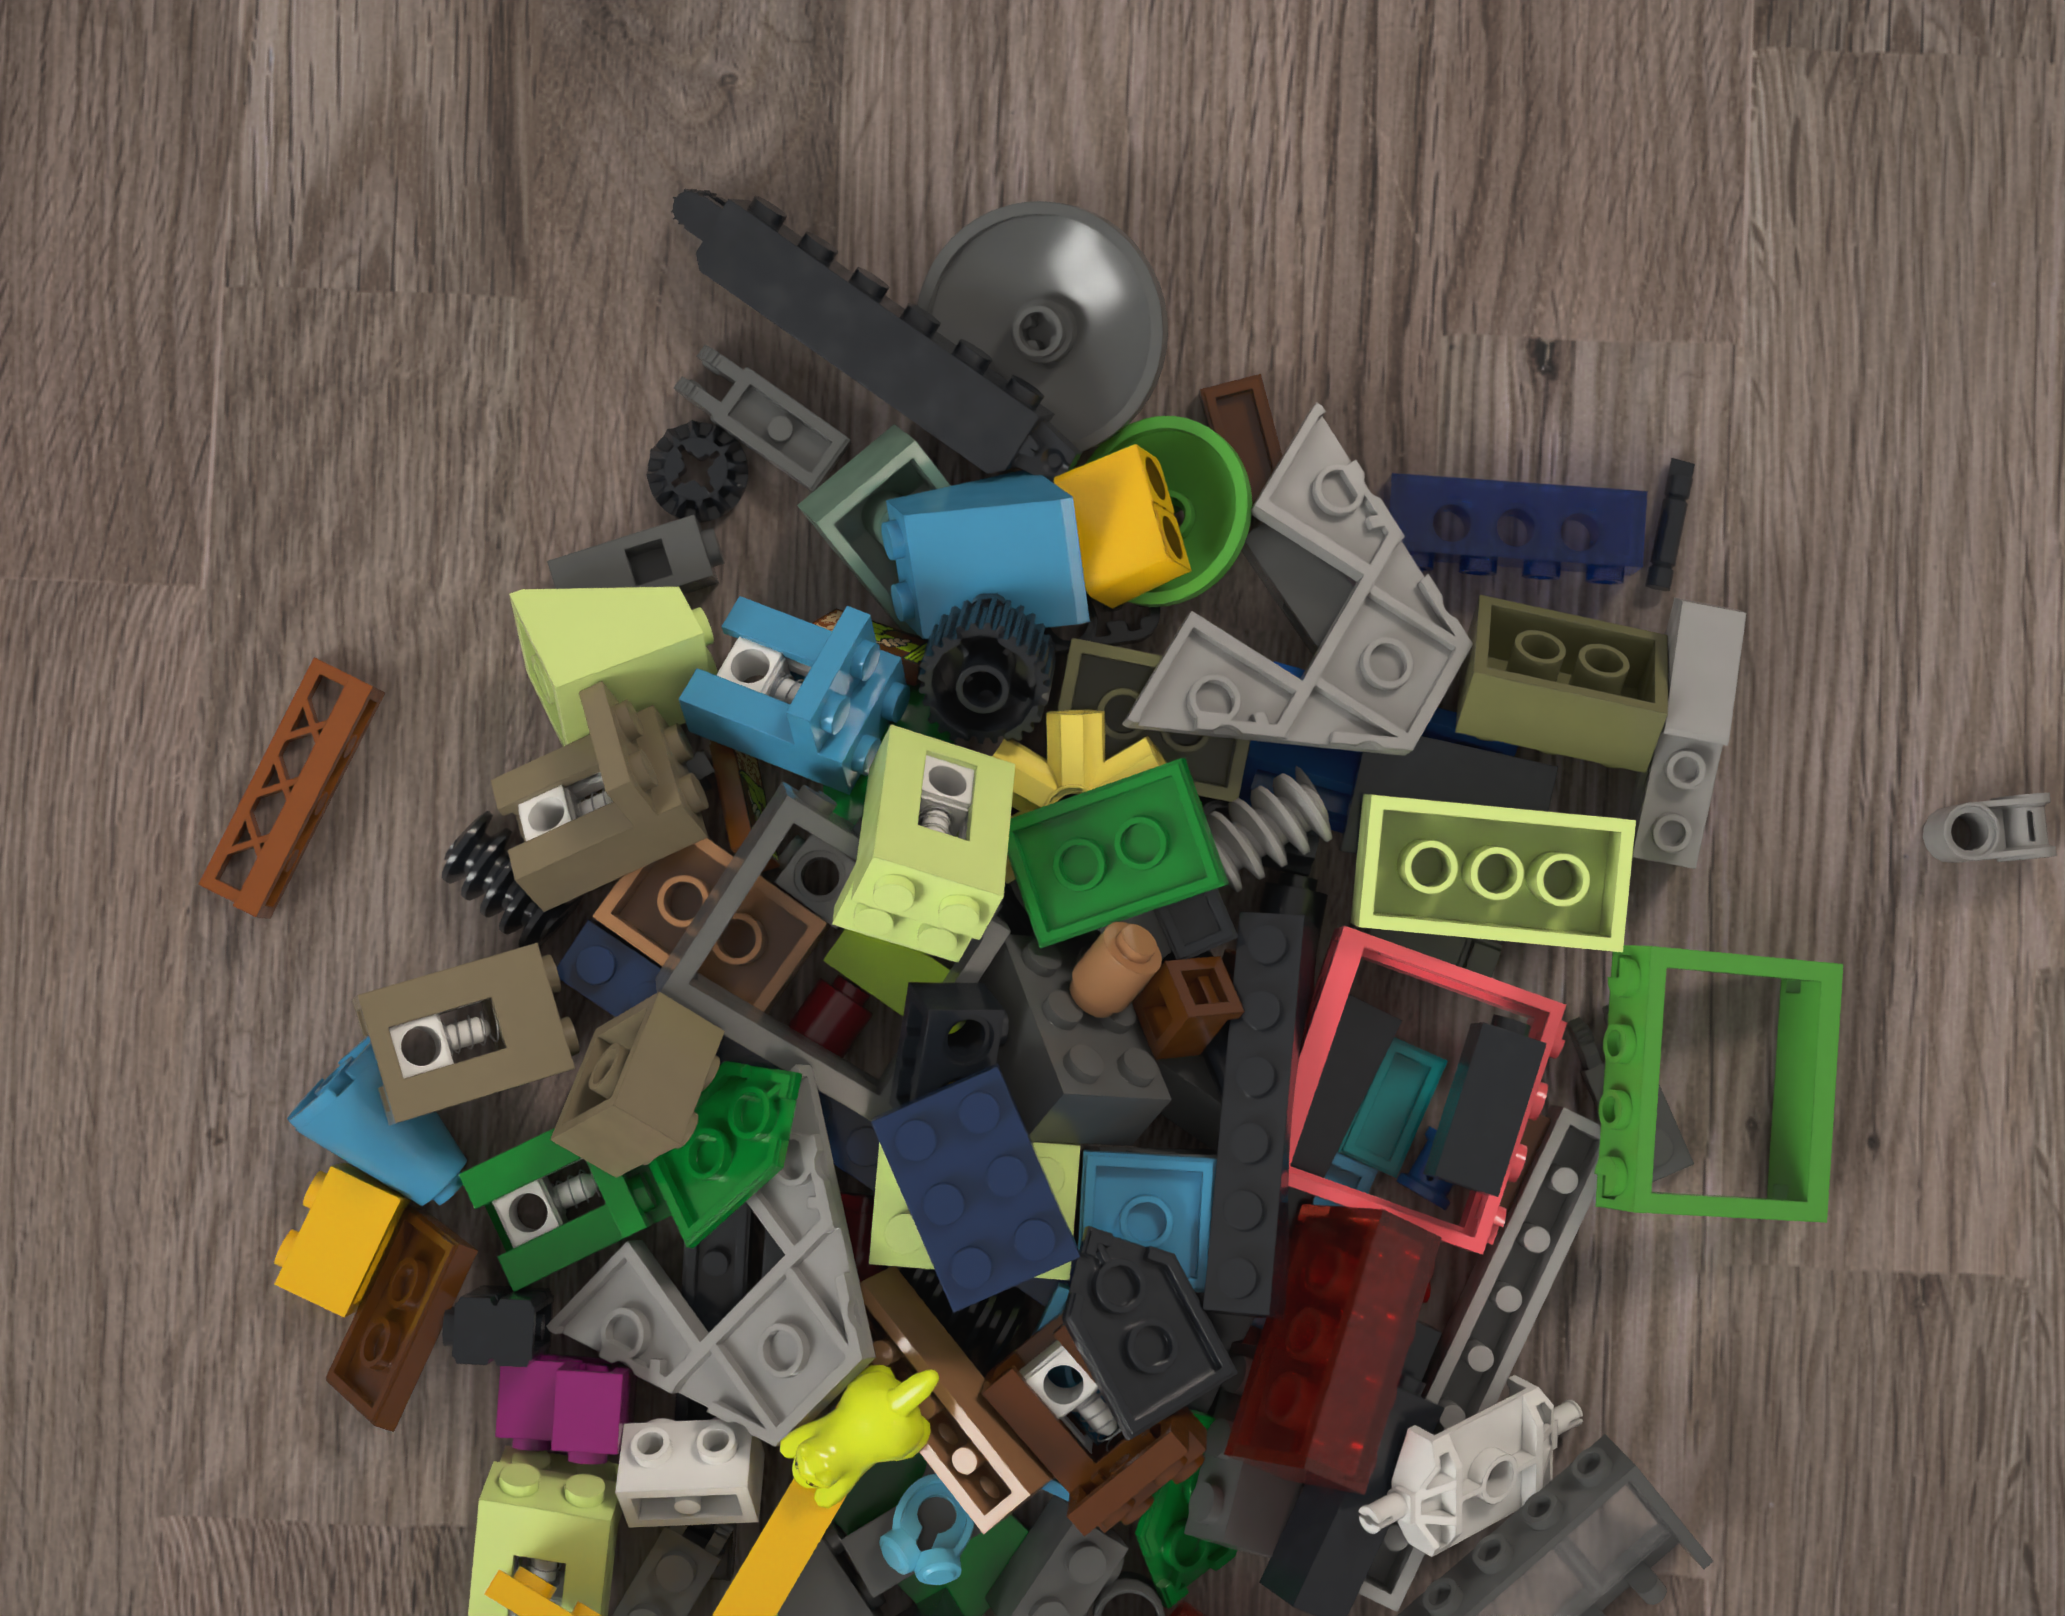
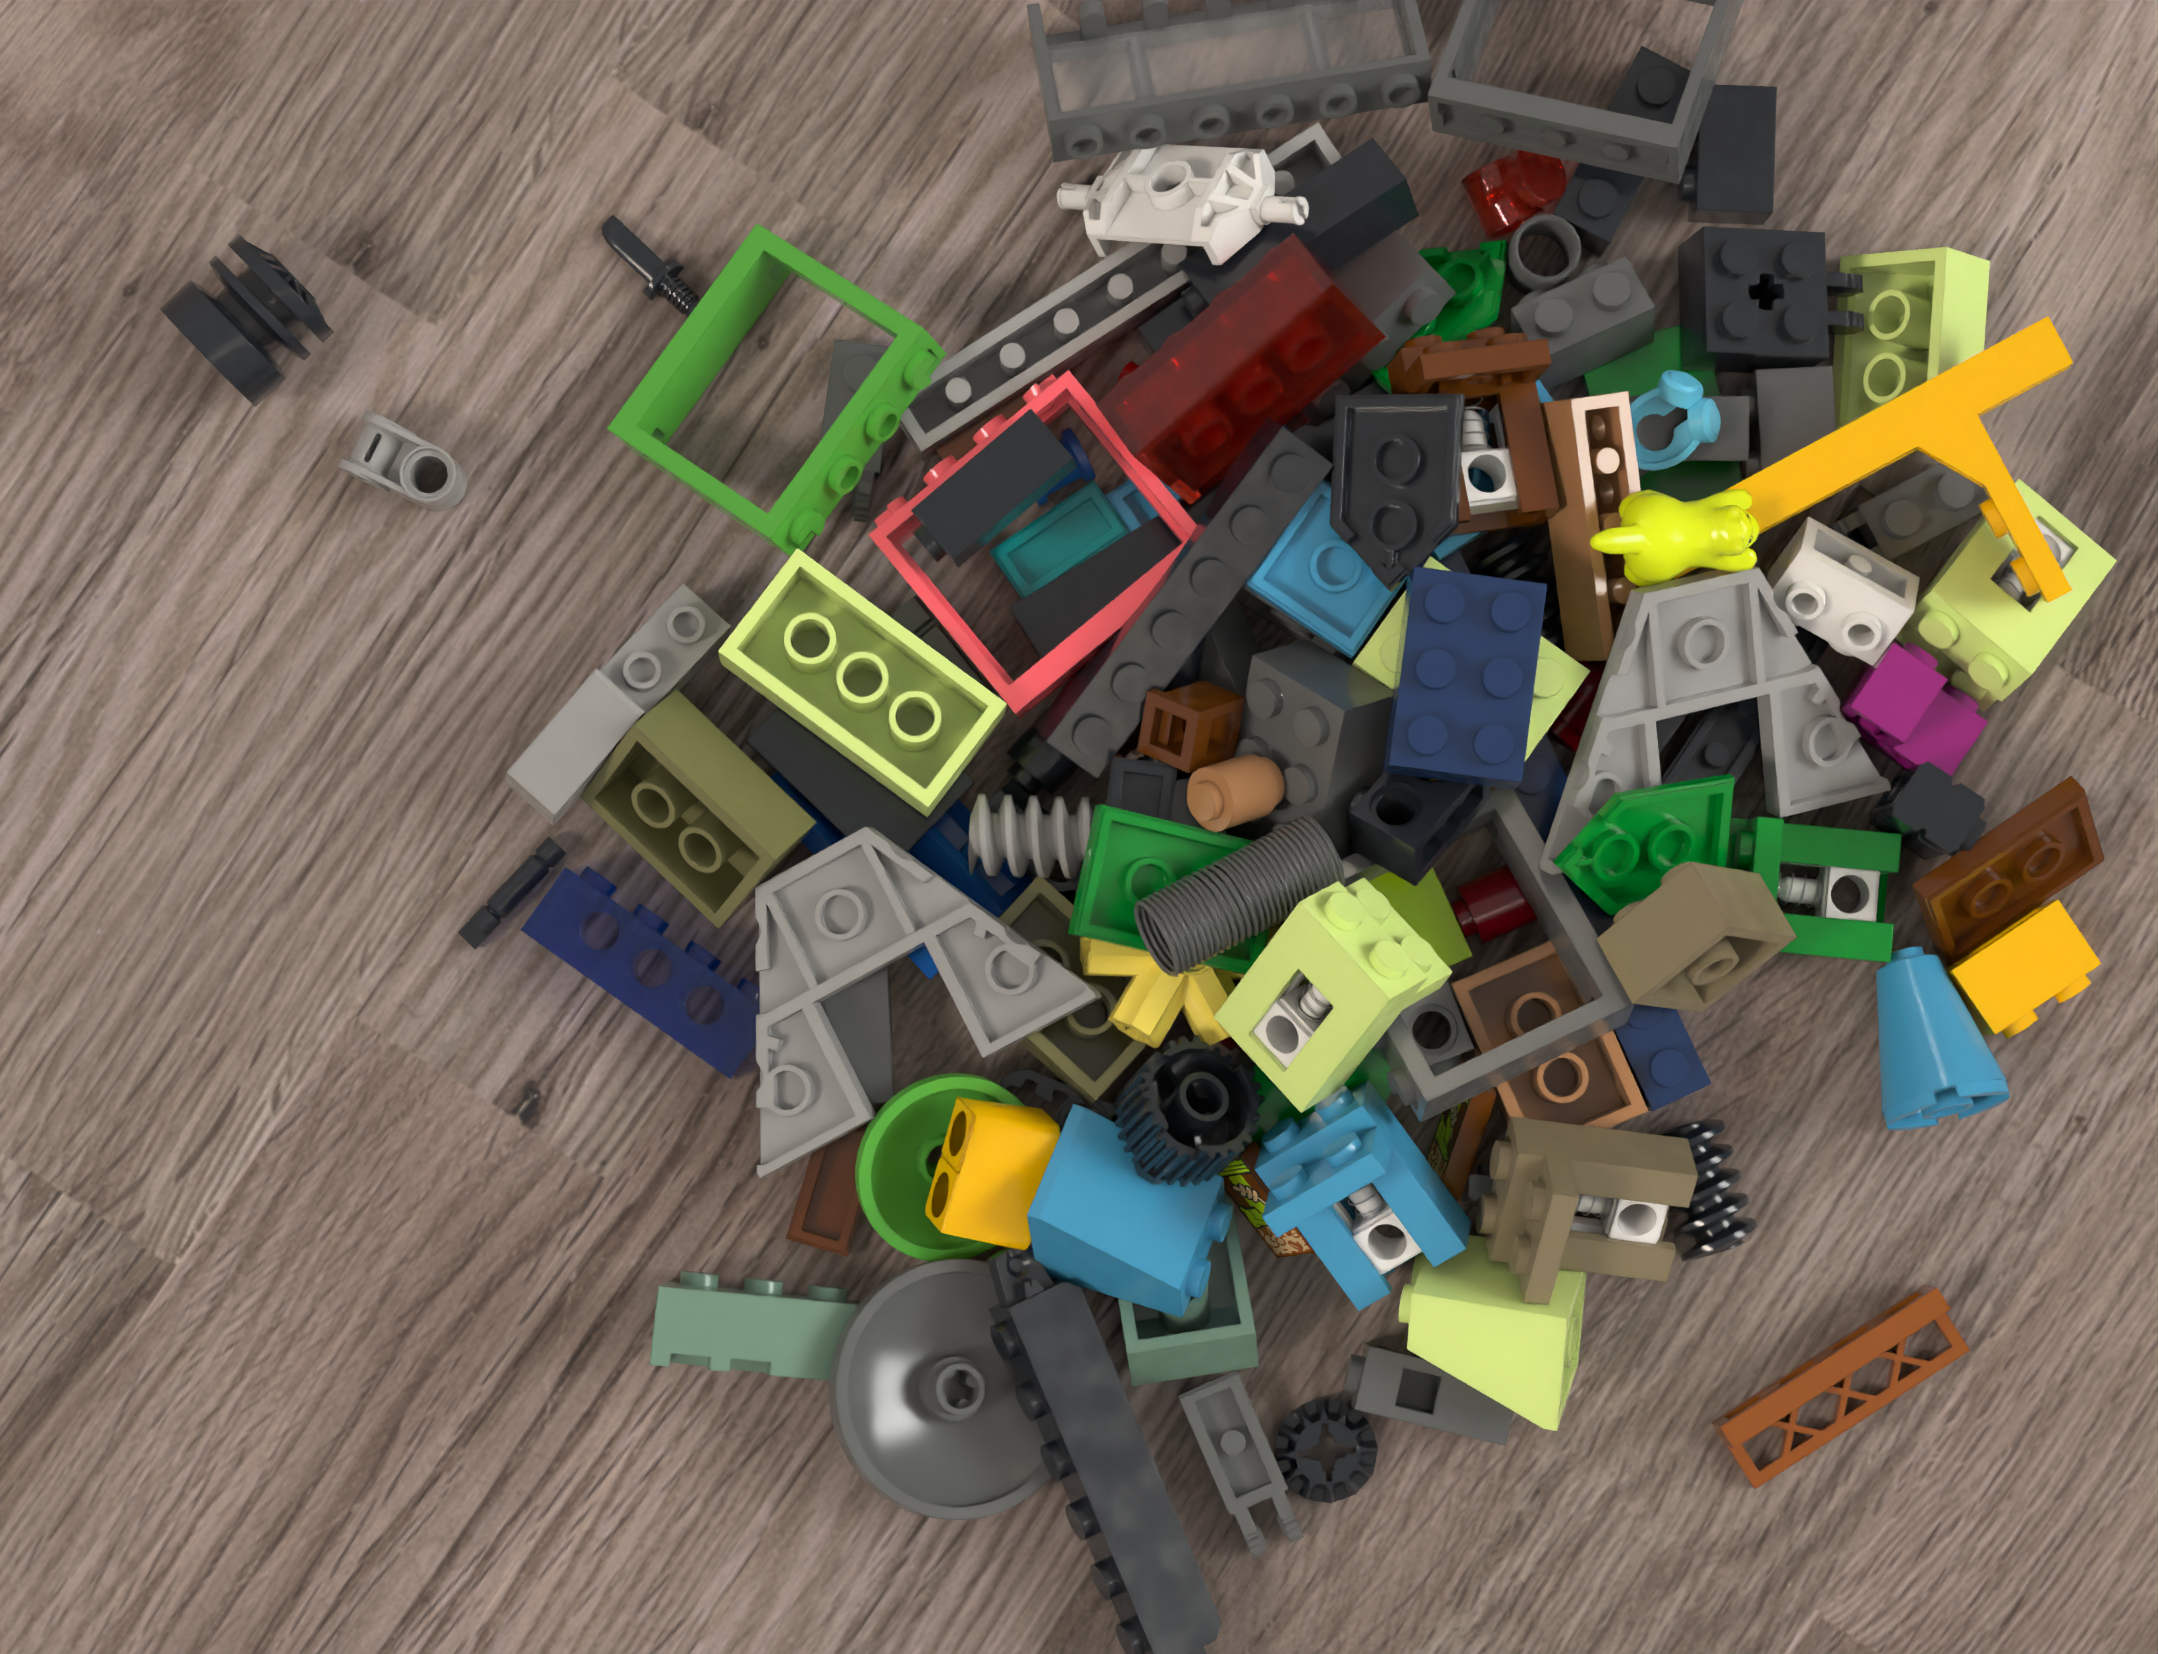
camera: 150 degrees left, 0 degrees up
(519, 1016) = (1761, 1059): dark tan brick -> none
(1047, 888) = (1250, 888): none -> dark grey piece
(1250, 277) = (748, 1326): none -> sand green wedge
(1875, 1127) = (662, 278): none -> black piece

